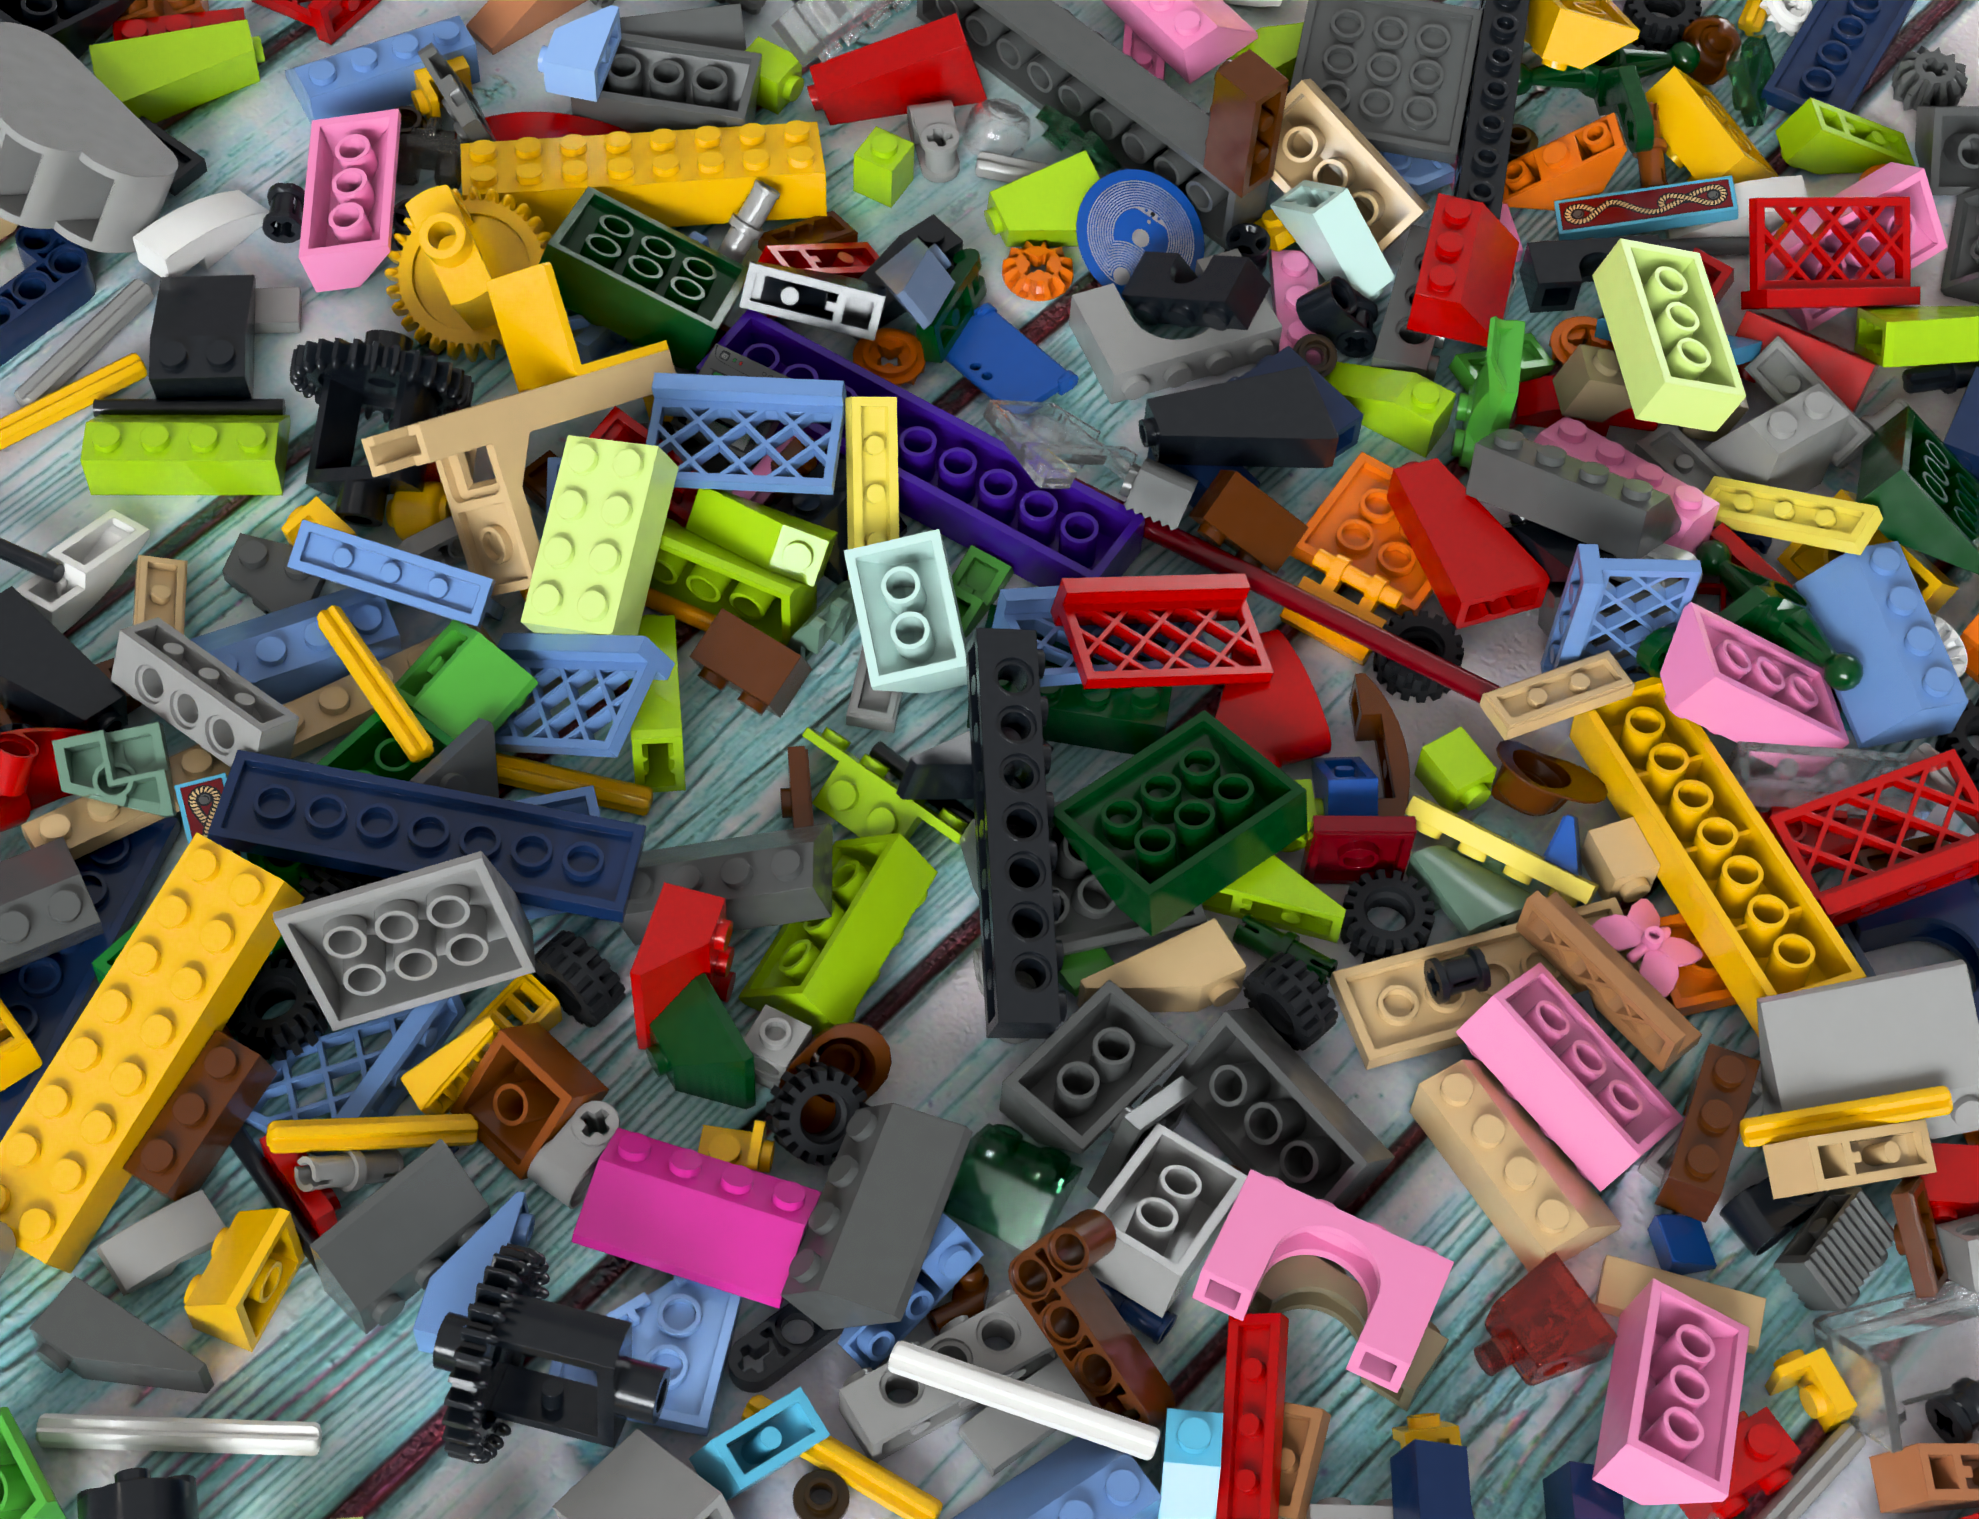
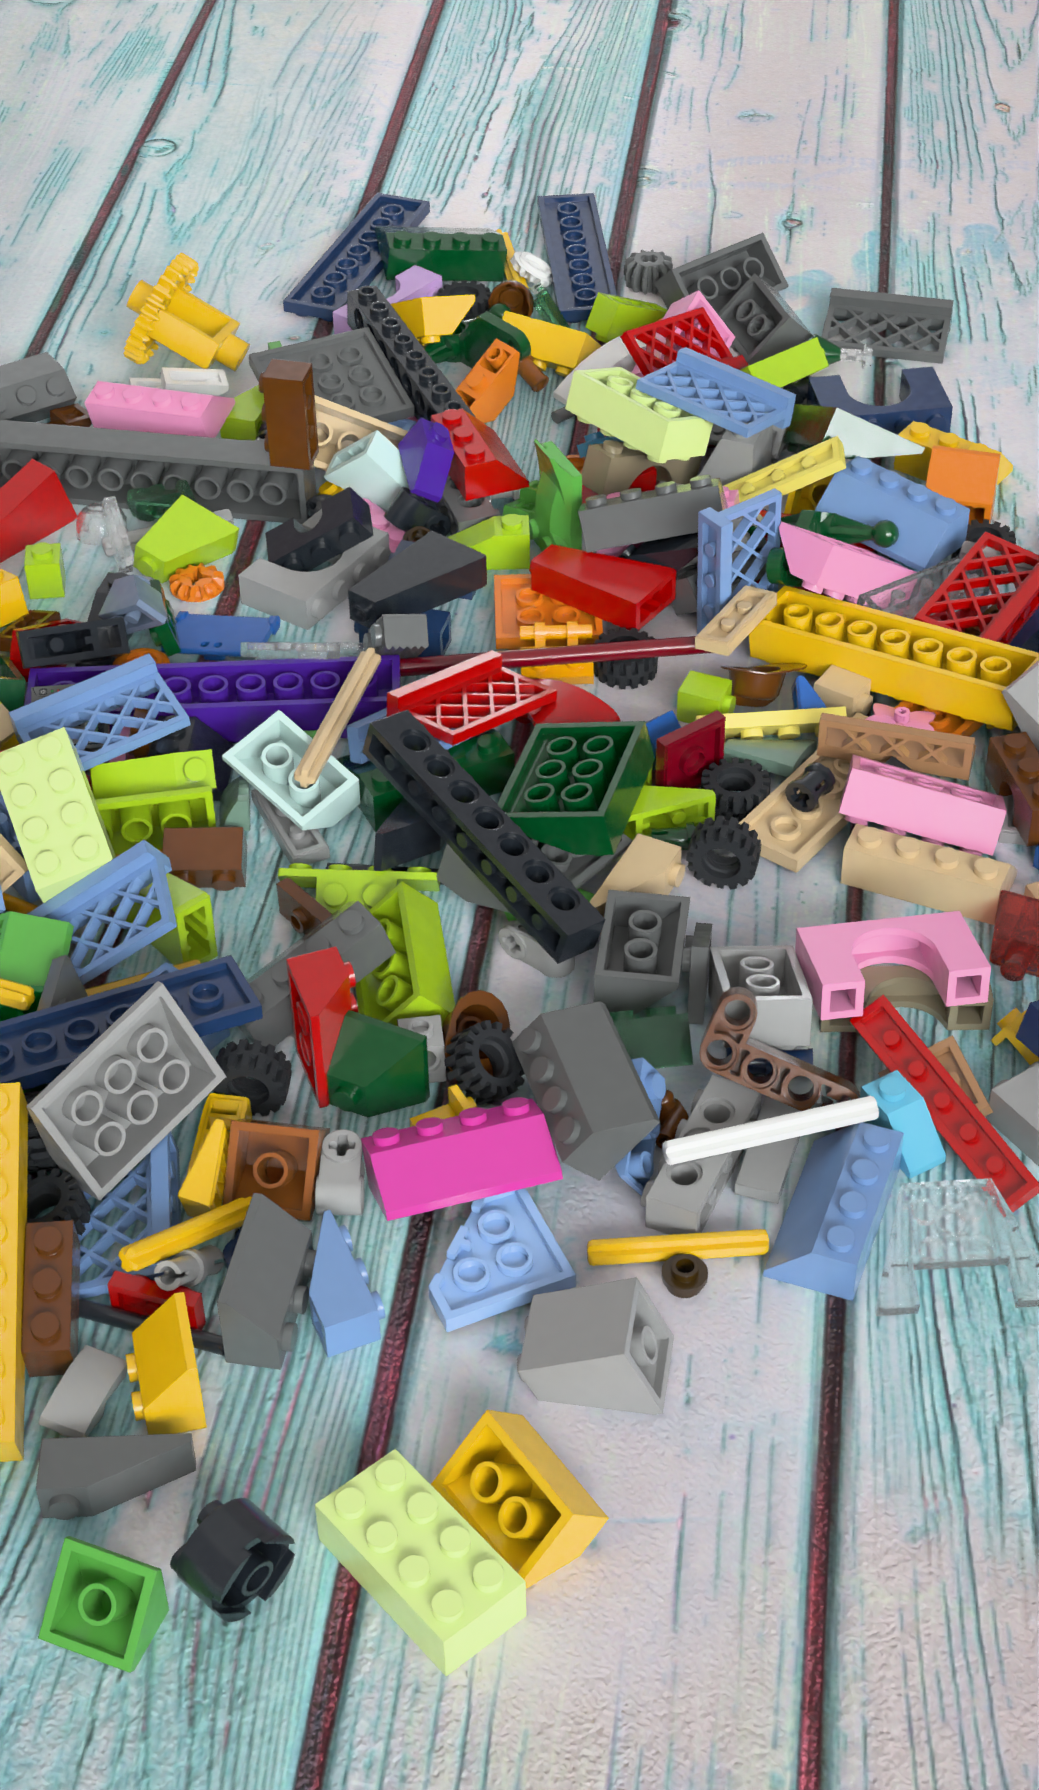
camera: 30 degrees left, 15 degrees down
(178, 1434) = (224, 1487): white axle -> none
(515, 1323) = (403, 1295): black piece -> none
(760, 1445) = (626, 1248): medium azure slope -> none
(774, 1368) = (583, 1212): black beam -> none
(871, 470) = (206, 714): light yellow plate -> none
(935, 138) = (72, 540): light grey piece -> none
(989, 160) = (117, 535): none -> clear tile
(997, 573) = (337, 718): none -> tan axle
(1132, 215) = (239, 524): blue piece -> none
(1247, 521) = (462, 628): reddish brown brick -> none
(1277, 1113) = (762, 910): dark grey slope -> none
(1376, 722) = (639, 699): reddish brown slope -> none
(1386, 255) = (427, 458): none -> dark purple slope
(1556, 269) = (548, 424): black arch -> none
(1647, 209) = (543, 393): tile -> none
(1801, 359) = (720, 394): none -> medium blue fence

